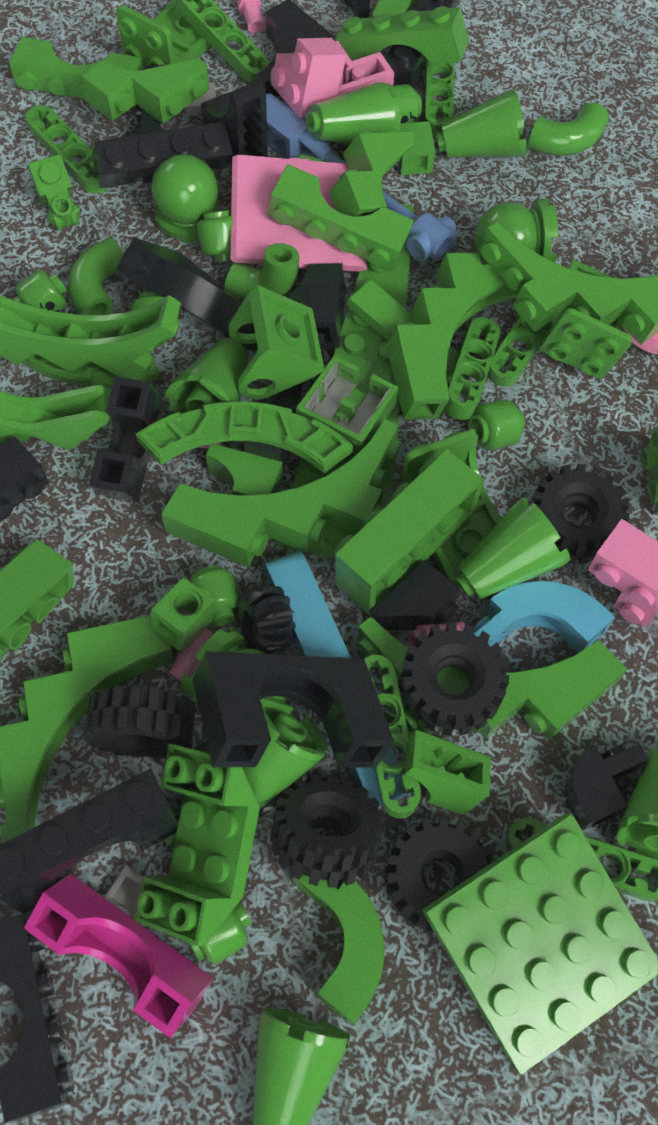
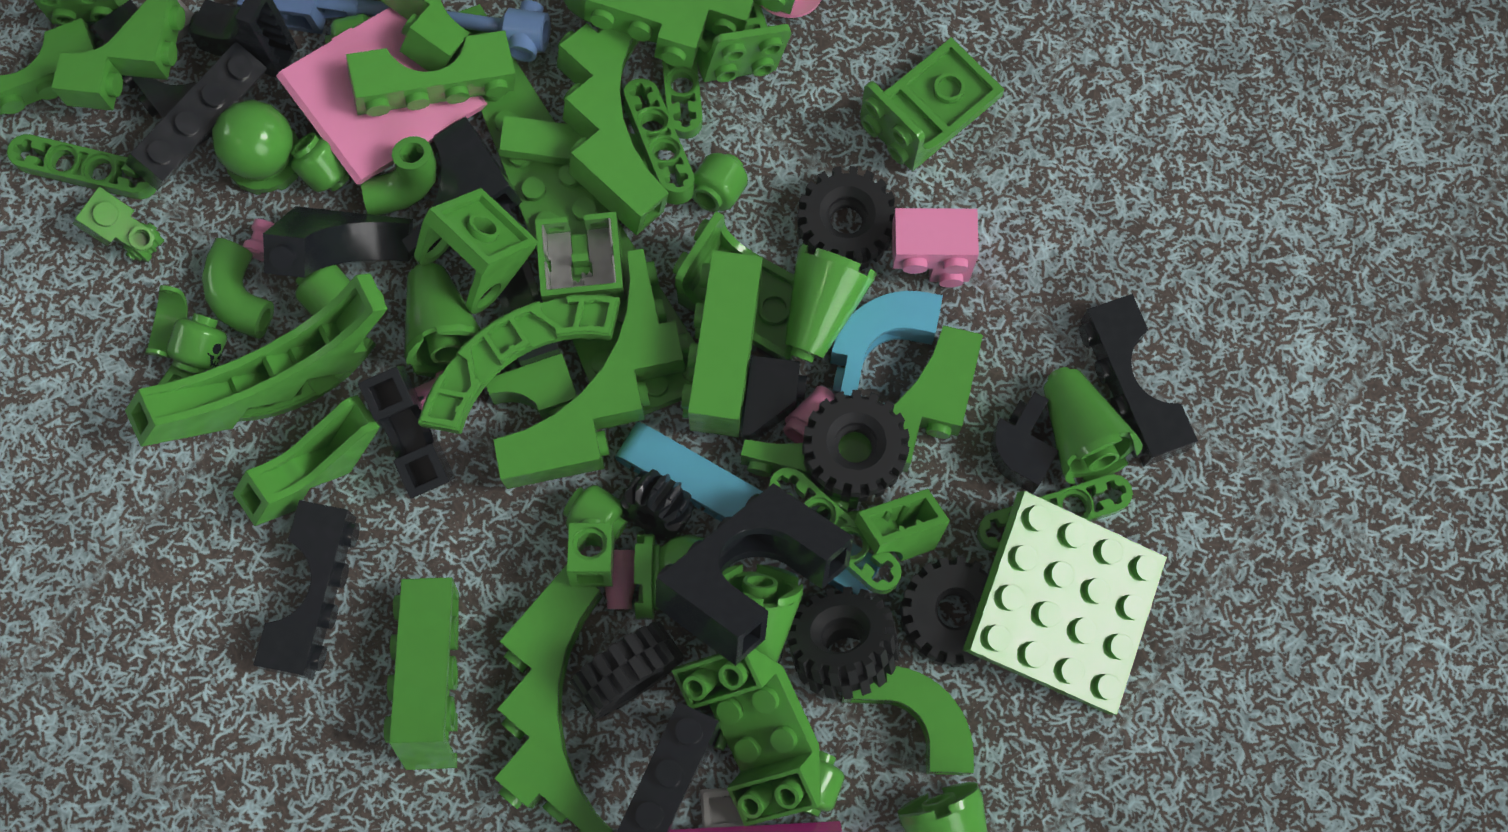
camera: 35 degrees left, 10 degrees up
(47, 262) = (170, 307): none -> bright green helmet

